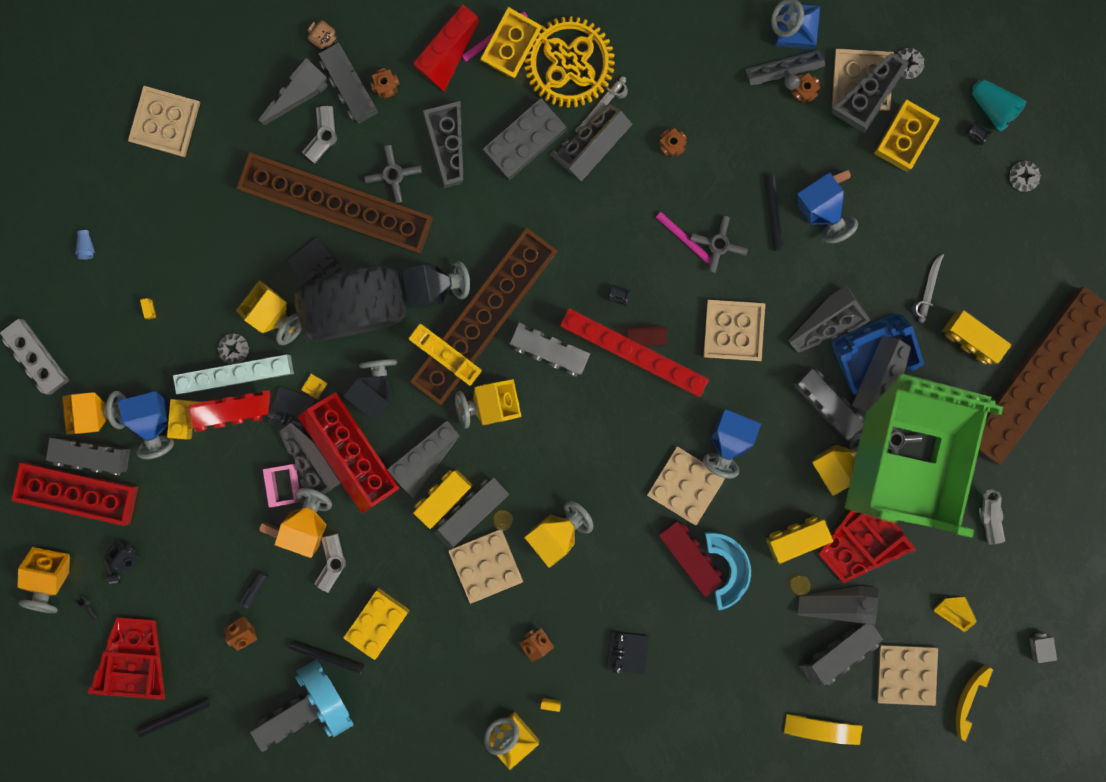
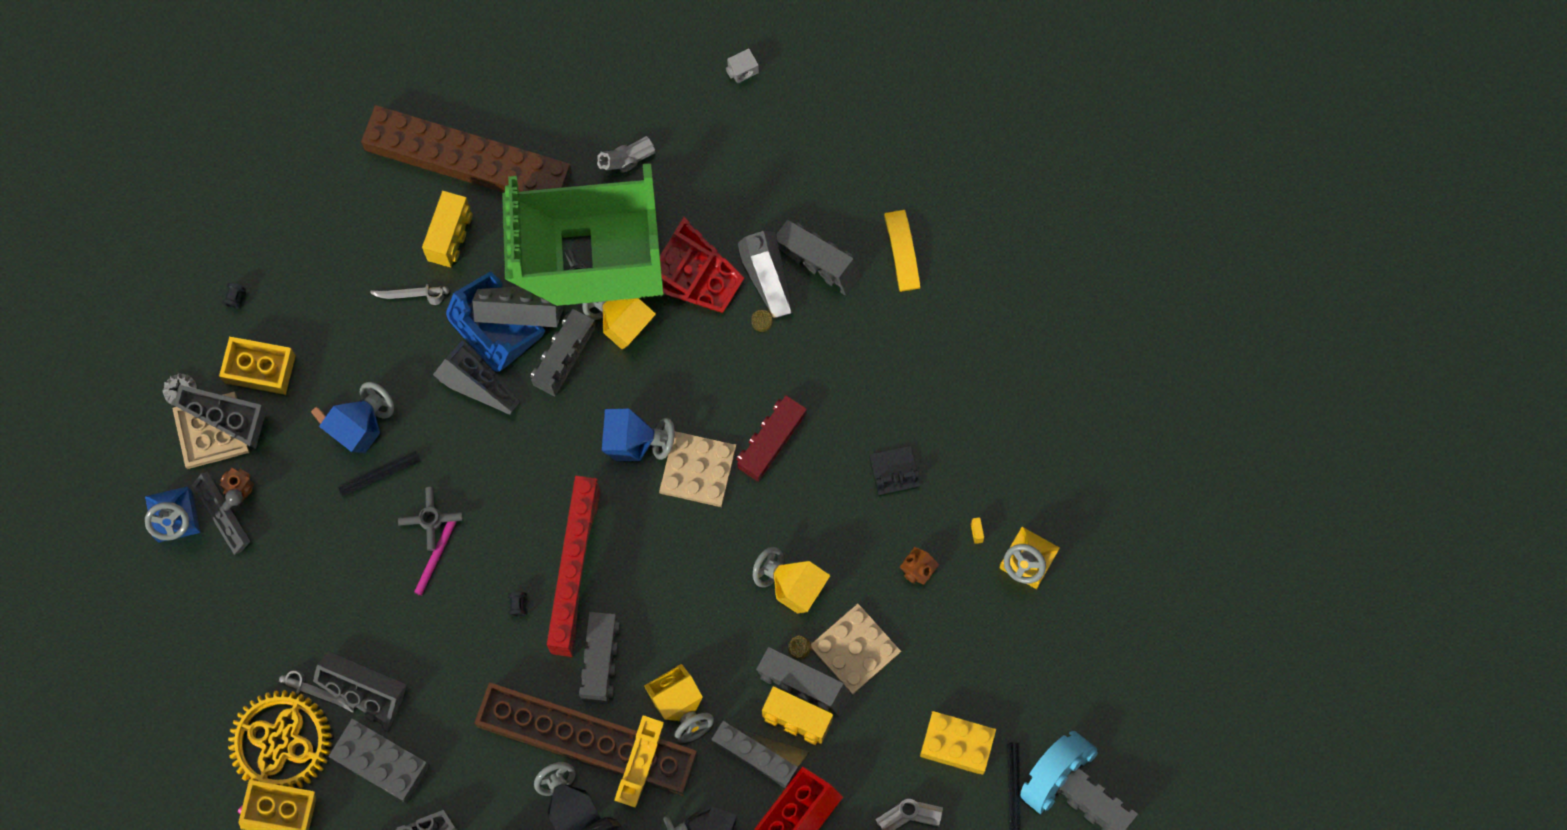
camera: 110 degrees left, 15 degrees down
(648, 336) = (551, 557): clear red brick -> none
(669, 149) = (339, 608): dark orange brick -> none
(734, 330) = (517, 473): tan plate -> none
(739, 568) = (766, 385): medium azure brick -> none
(799, 539) = (713, 335): yellow brick -> none
(907, 675) = (816, 186): tan plate -> none
(956, 612) = (736, 159): yellow slope -> none
(981, 678) = (820, 121): yellow slope -> none
(998, 103) = (196, 287): teal cone -> none
(1020, 183) = (273, 240): light grey gear -> none

